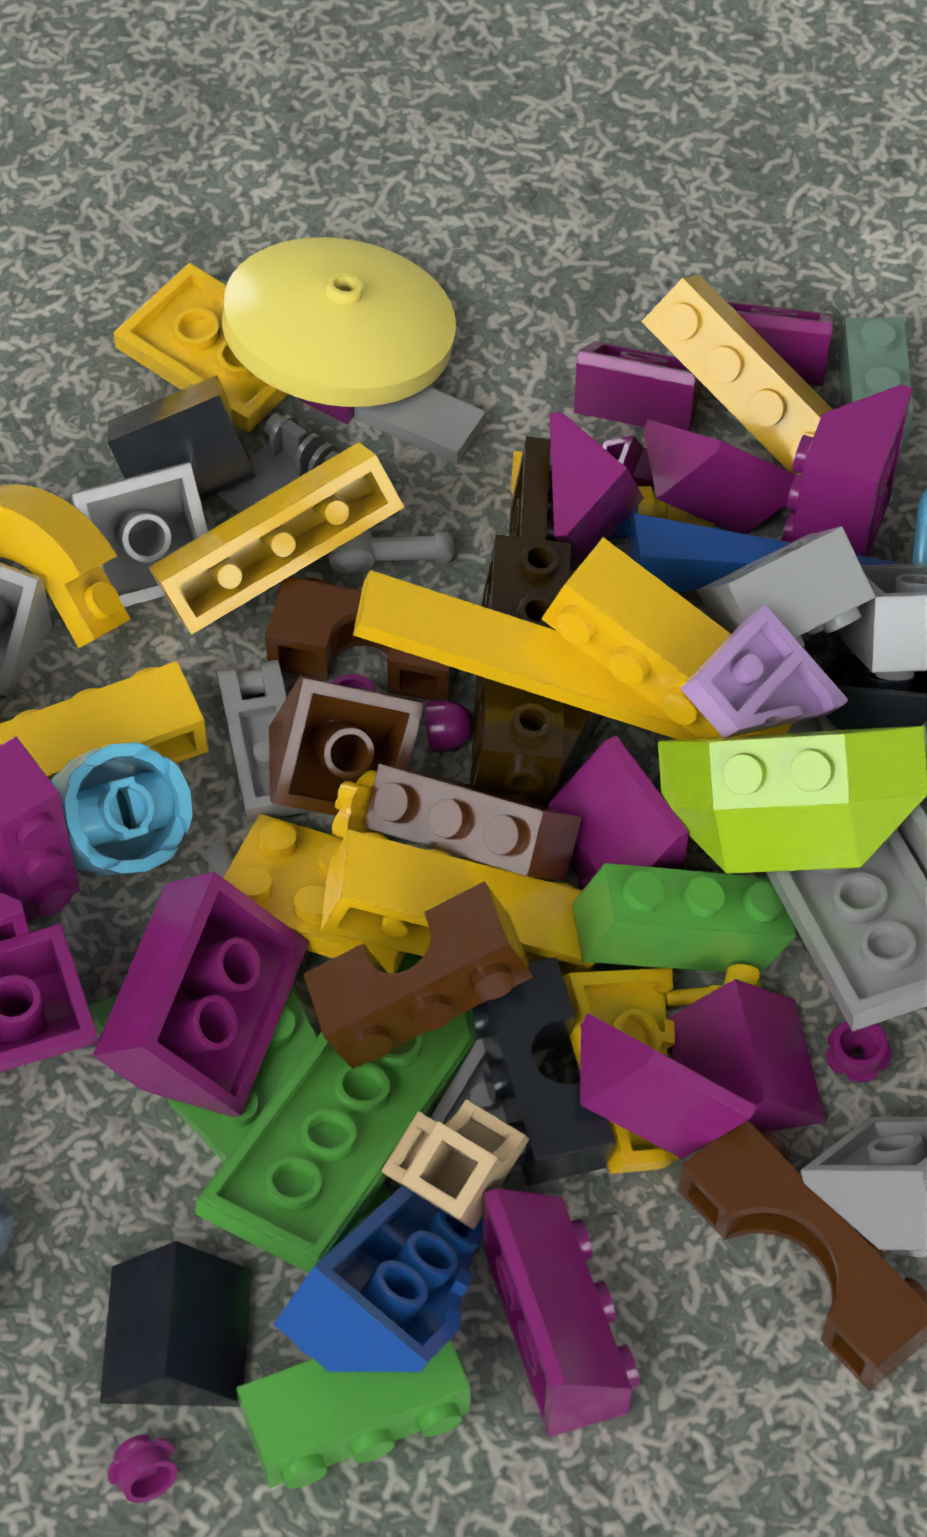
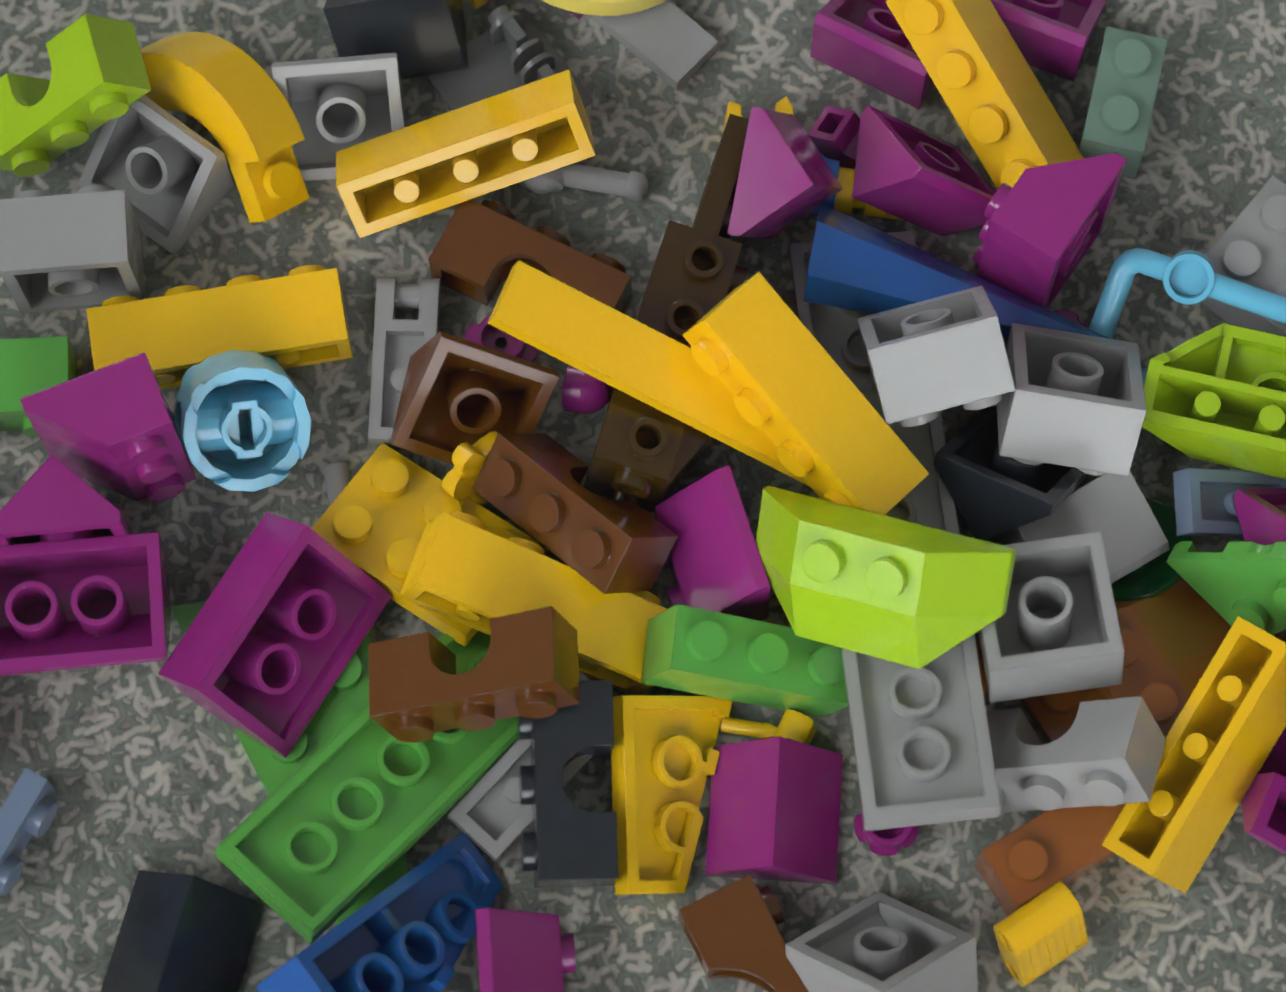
camera: 15 degrees right, 15 degrees up
(456, 1160) = (461, 868): tan brick -> none
(653, 1092) = (670, 829): magenta slope -> none
(761, 680) = (872, 457): lavender wing -> none

